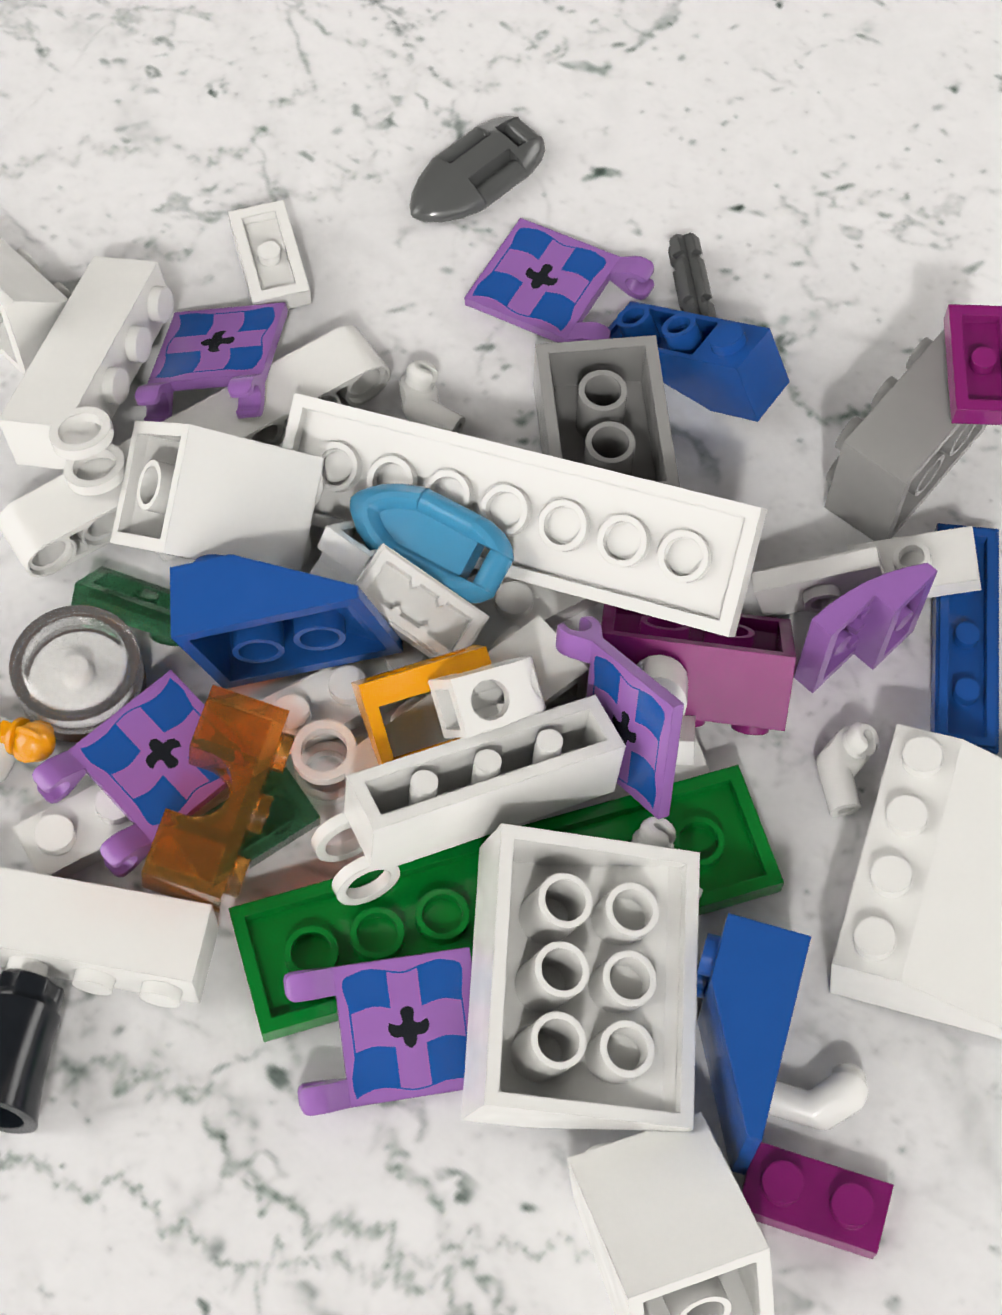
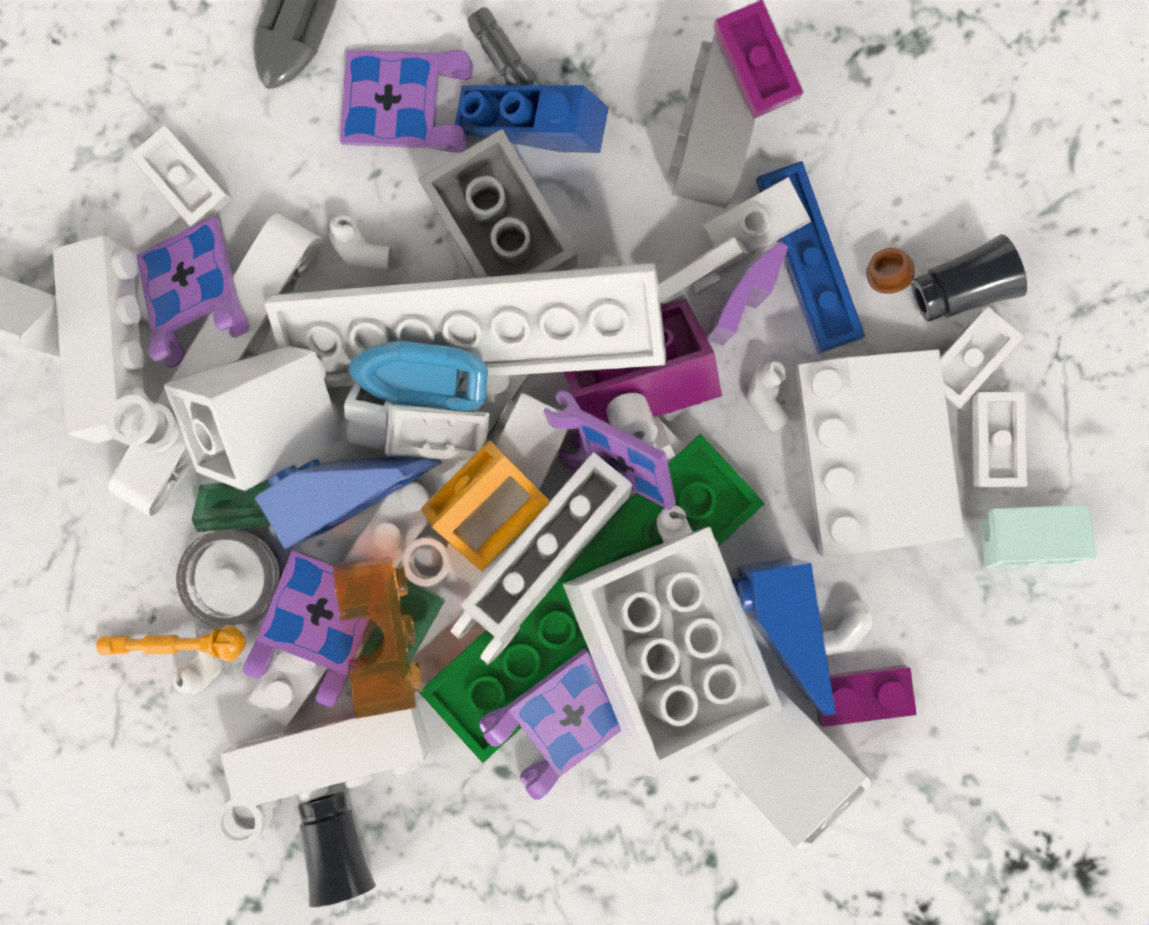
camera: 25 degrees left, 25 degrees up
(486, 697) = (525, 495): white leg -> none

